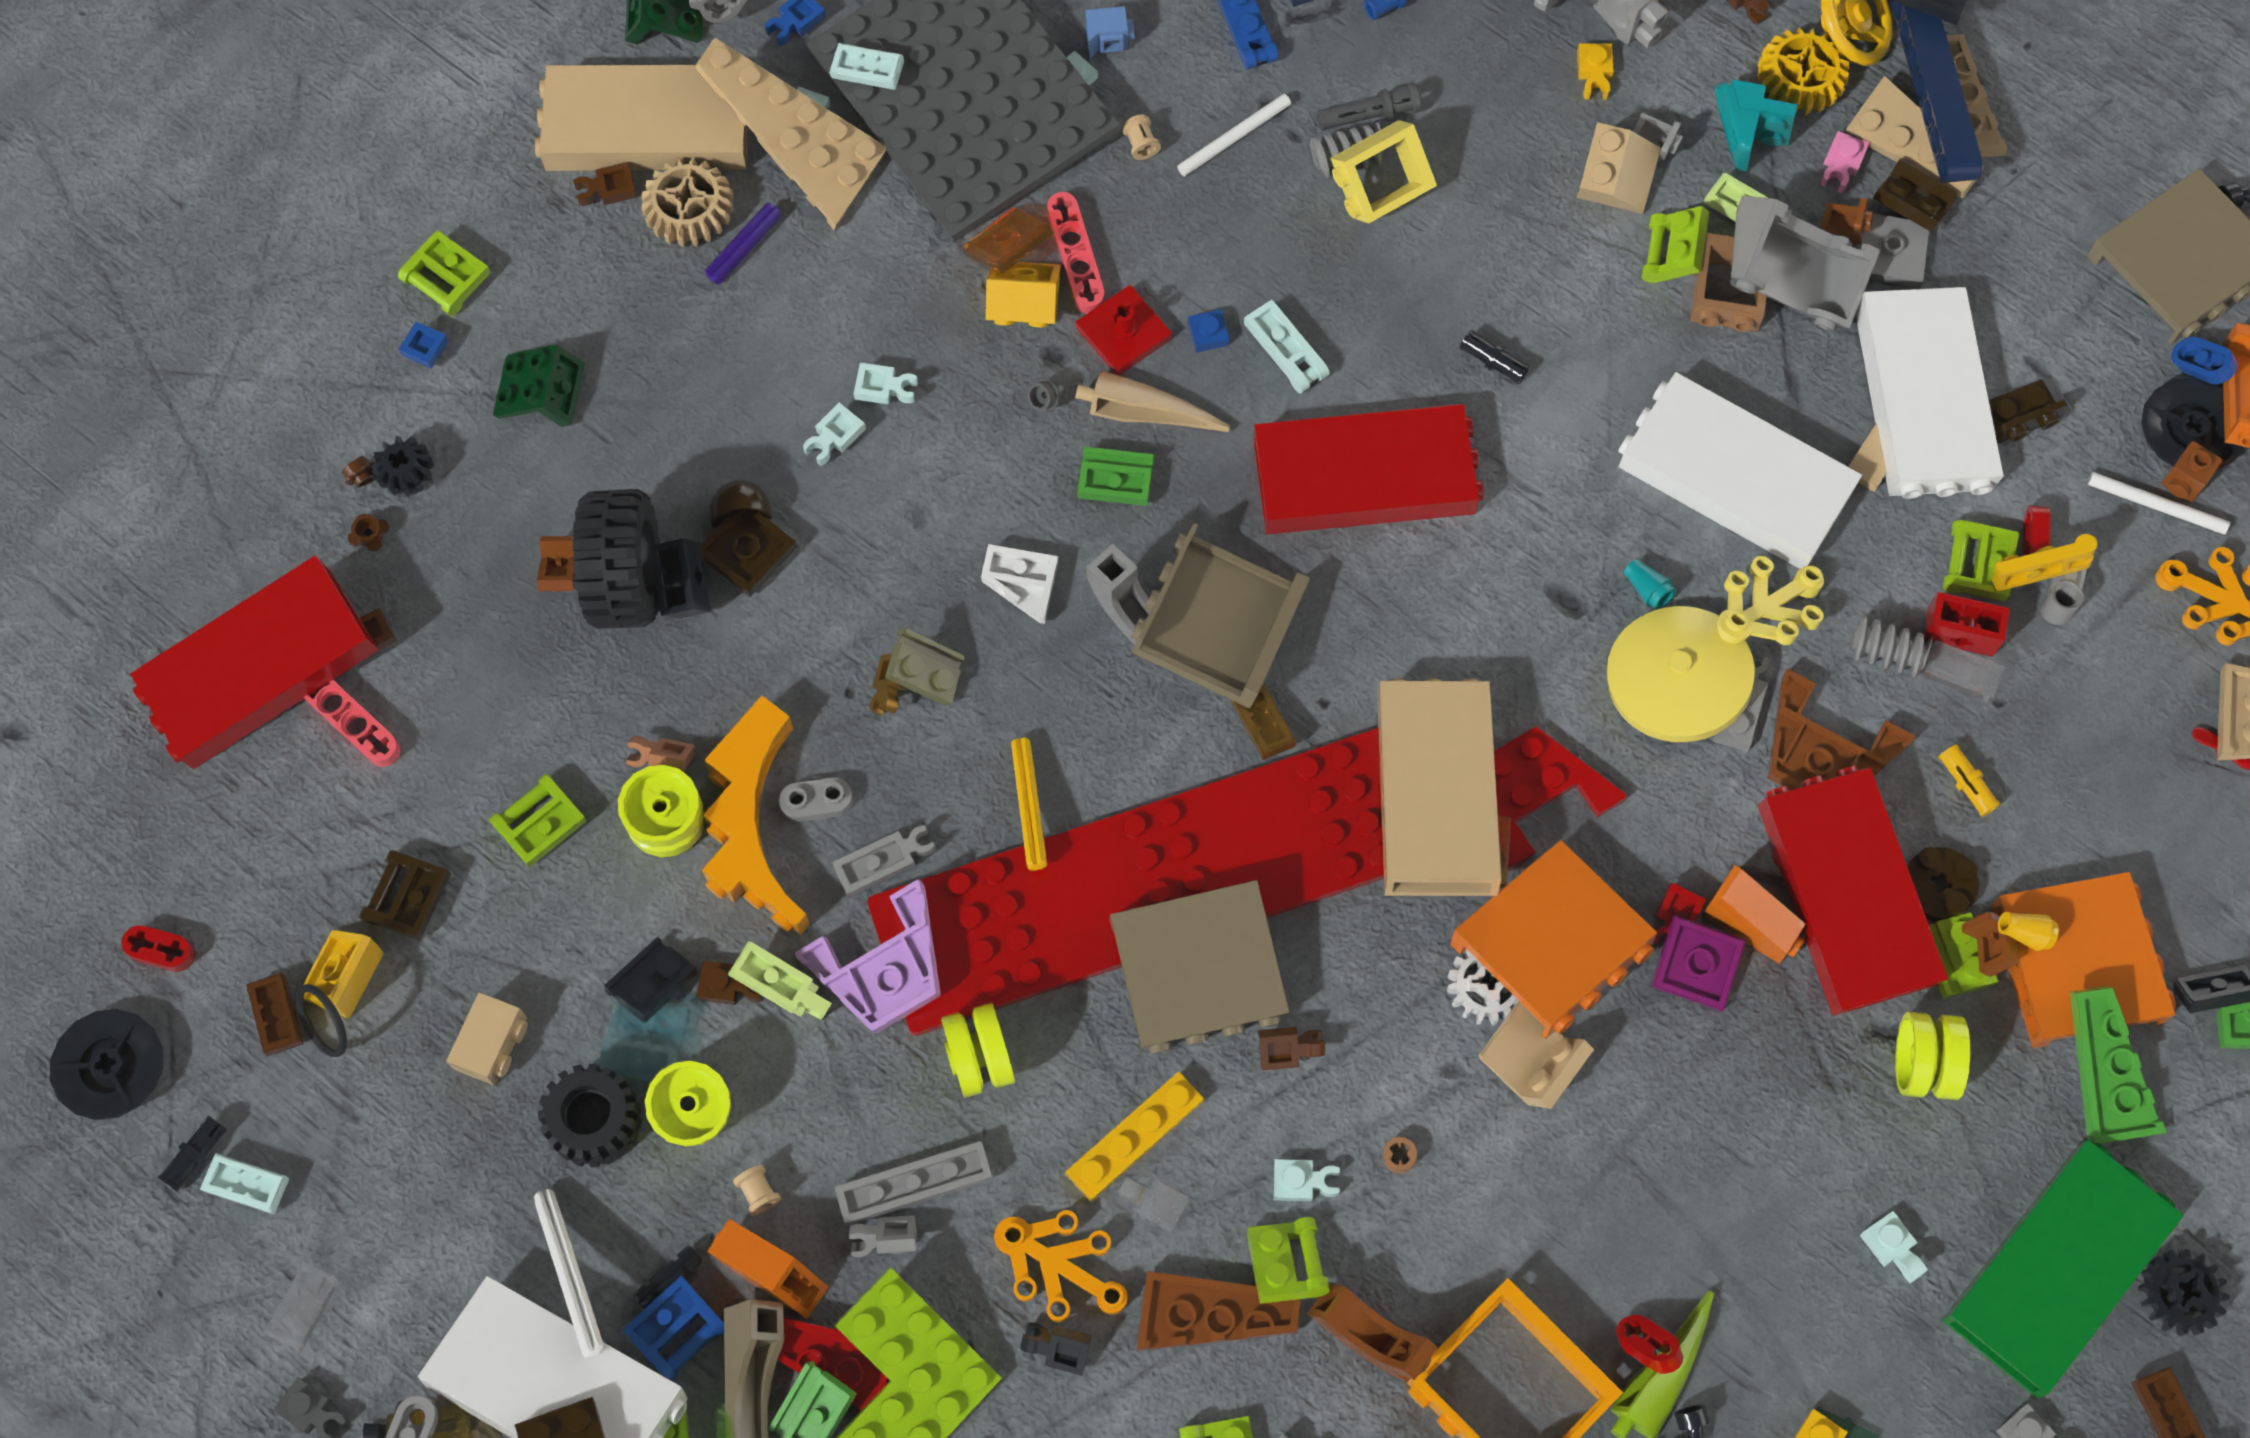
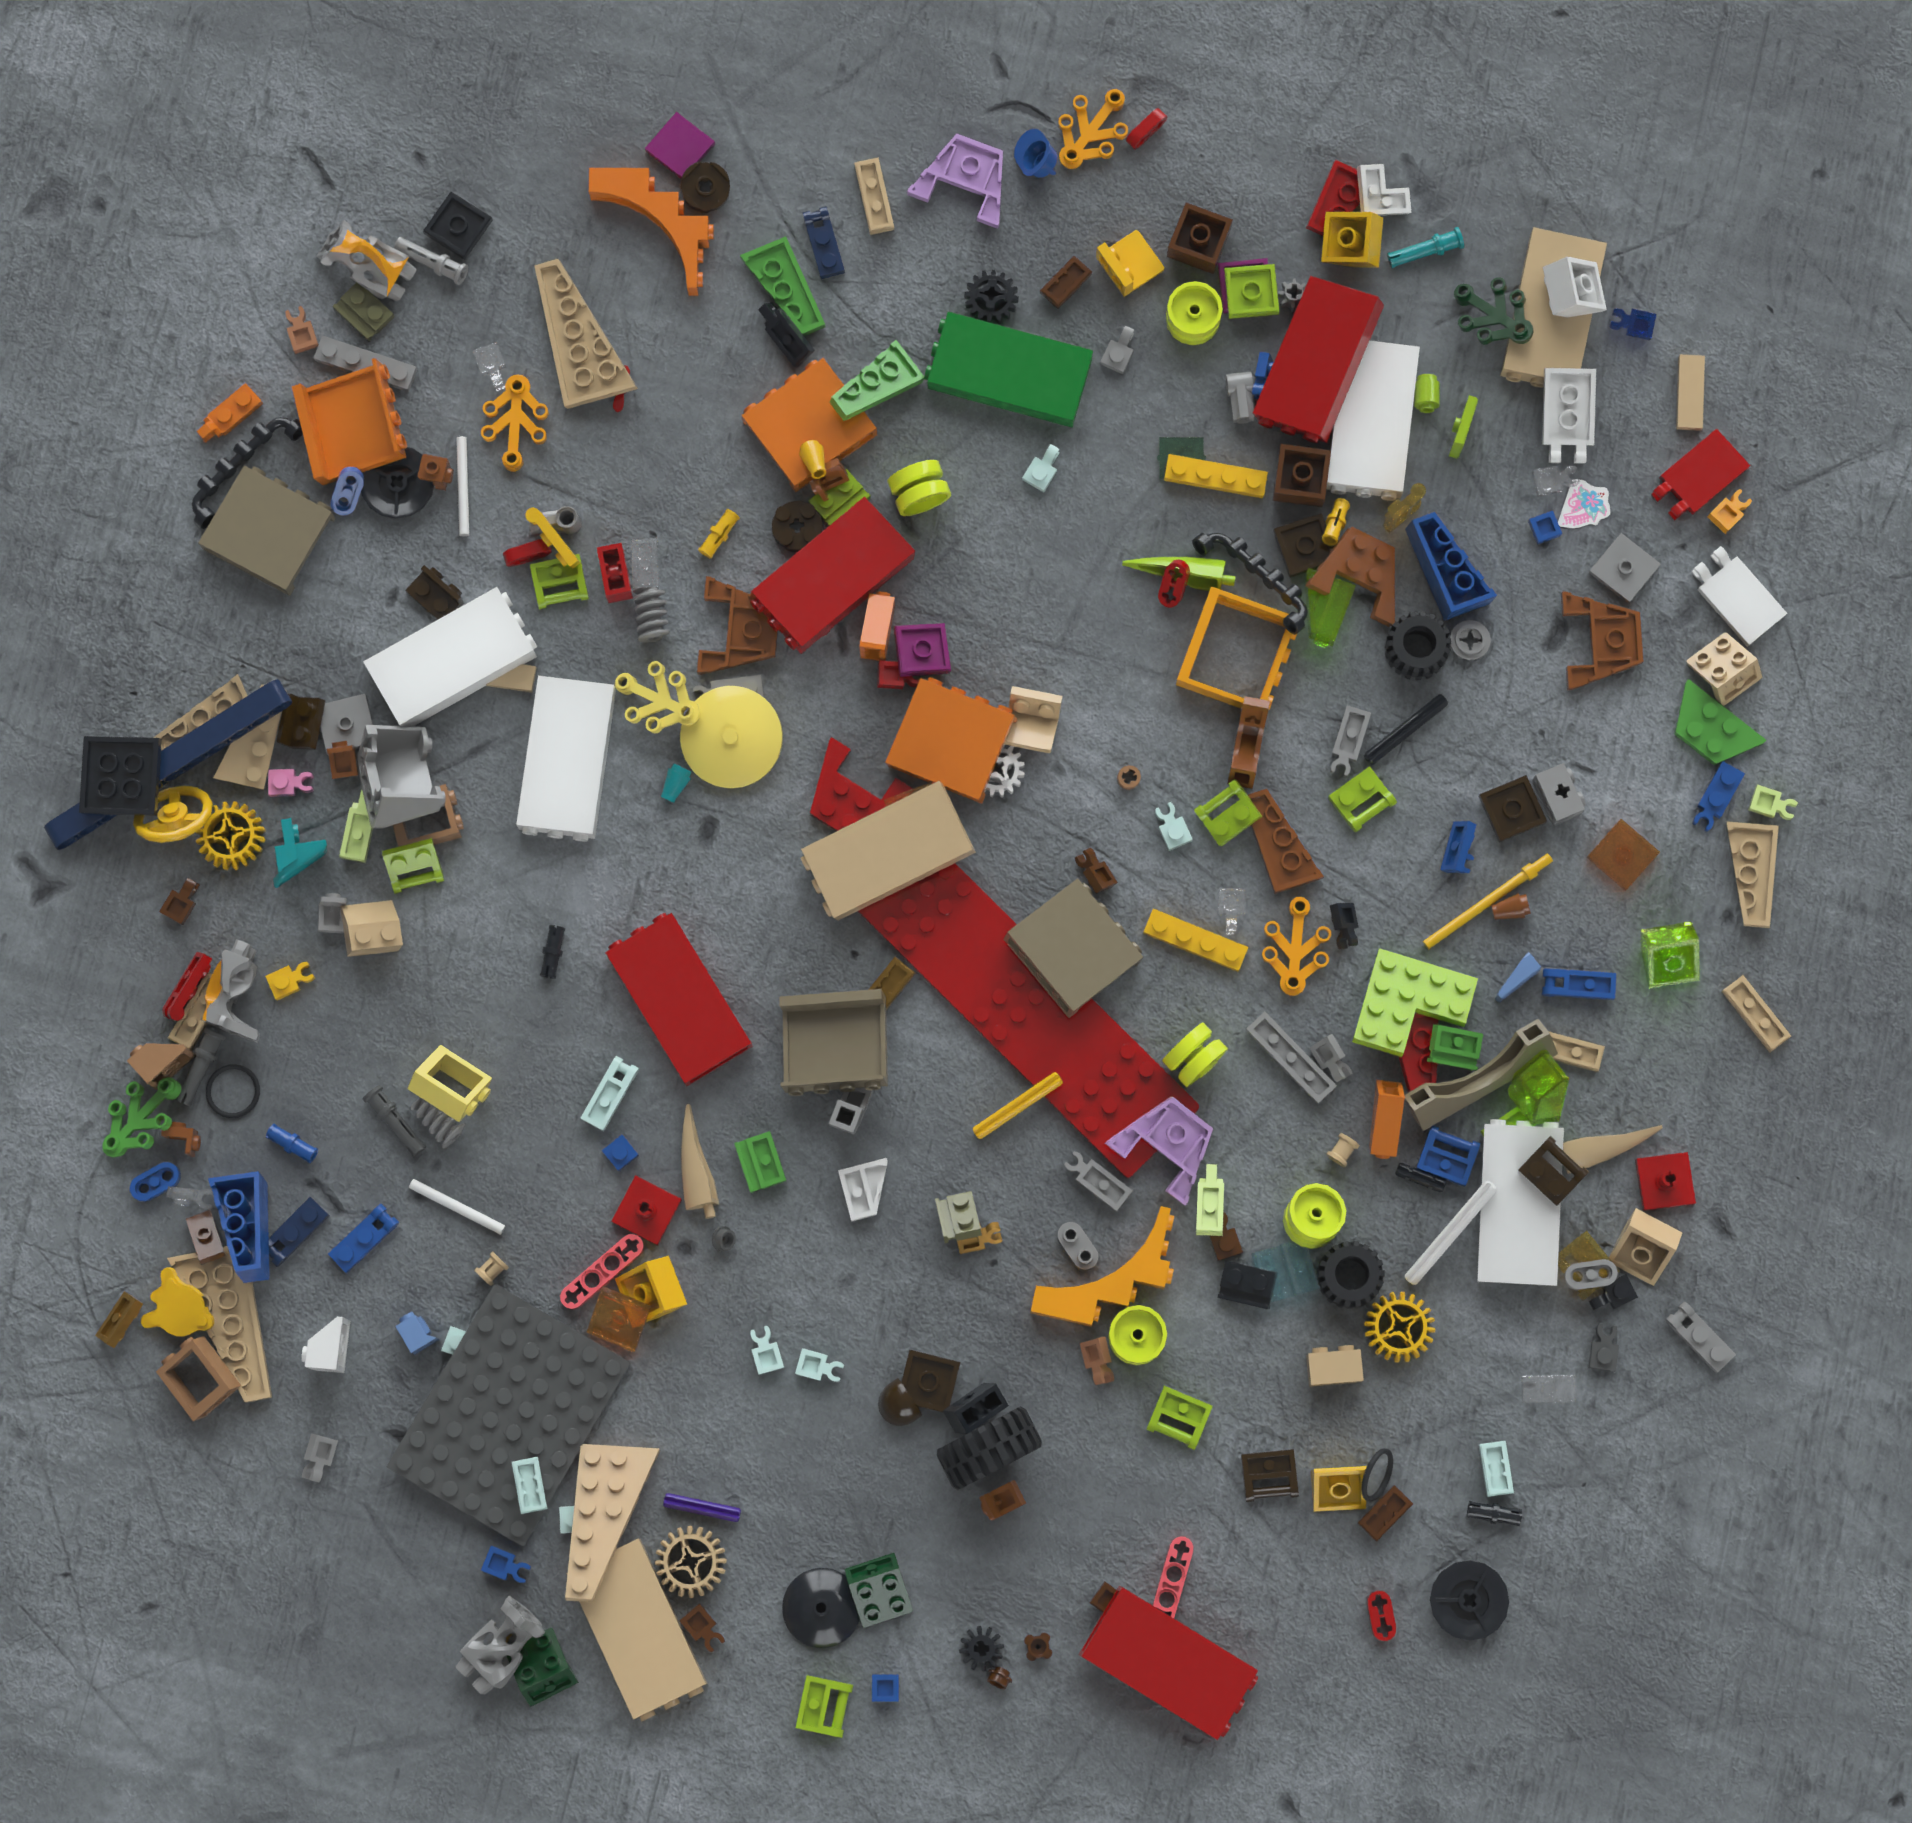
camera: 115 degrees left, 10 degrees up
(474, 1148) = (1394, 1316): none -> yellow gear
(575, 326) = (800, 1611): none -> black dish

